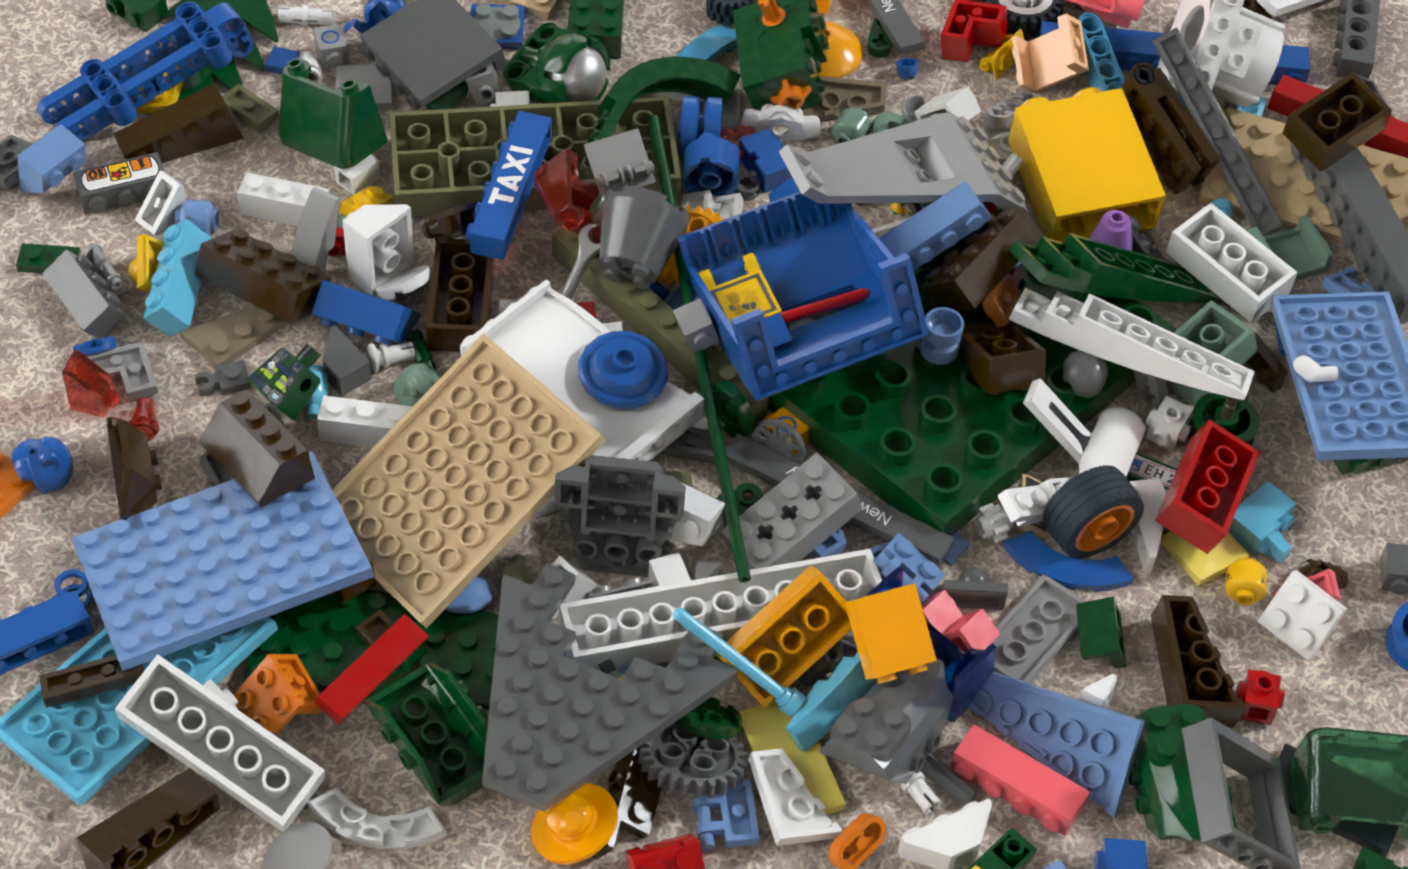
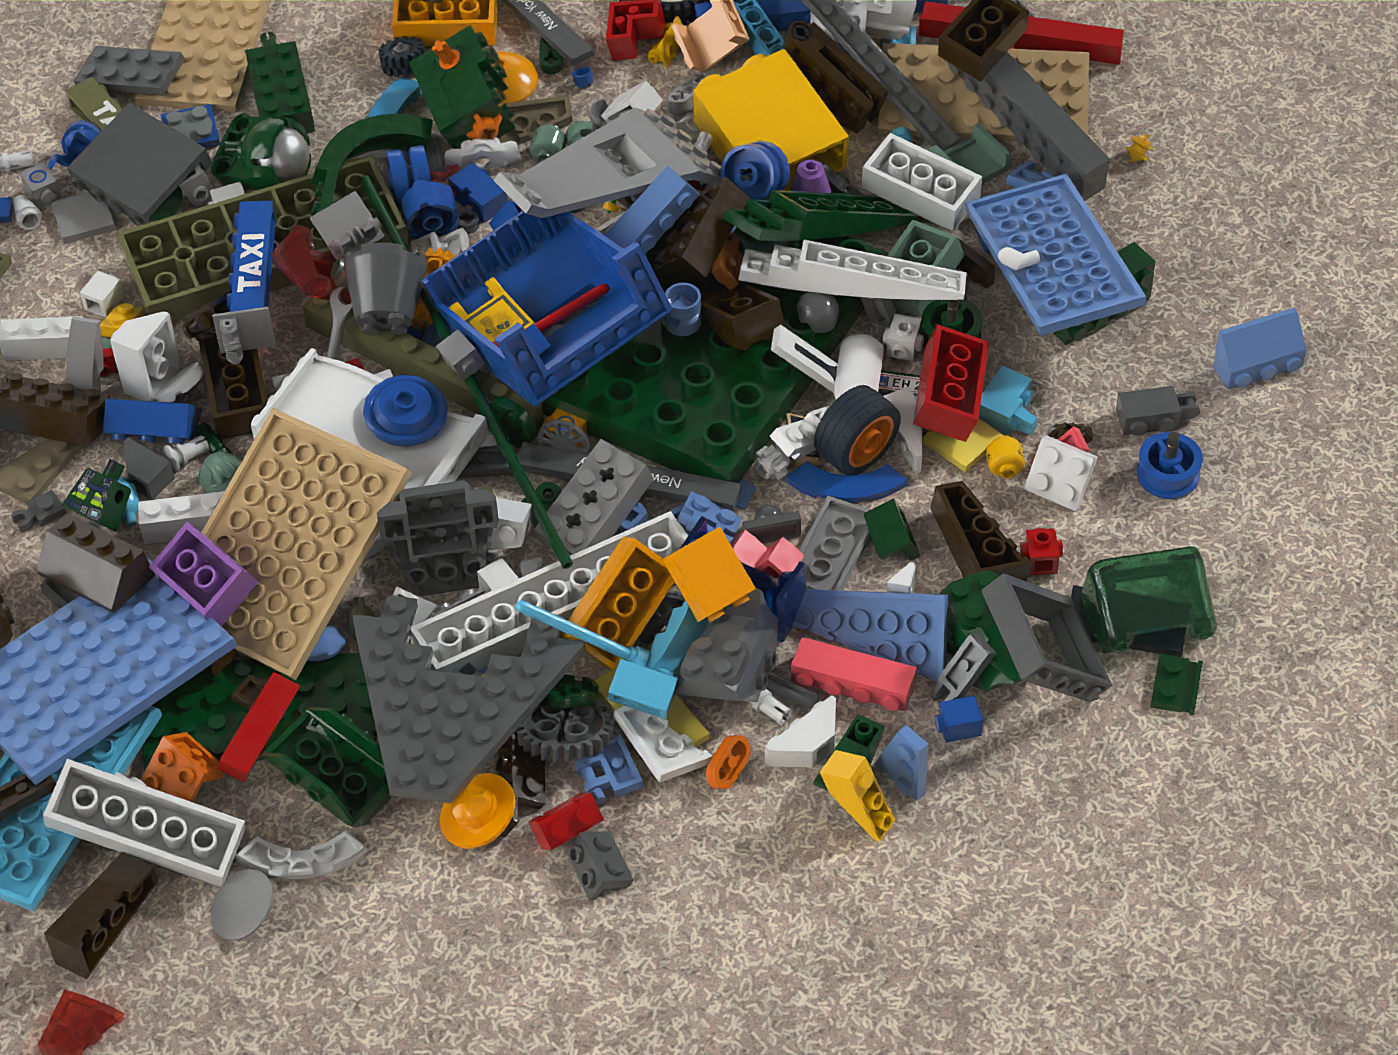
camera: 10 degrees left, 0 degrees up
(328, 123) = (62, 256): dark green windscreen -> none
(363, 491) = (203, 574): none -> medium lavender brick
(481, 245) = (243, 331): none -> light grey hinge
(787, 736) = (643, 688): none -> medium azure brick
(1059, 207) = (756, 169): none -> blue wheel
(1141, 808) = (963, 668): none -> dark grey hinge

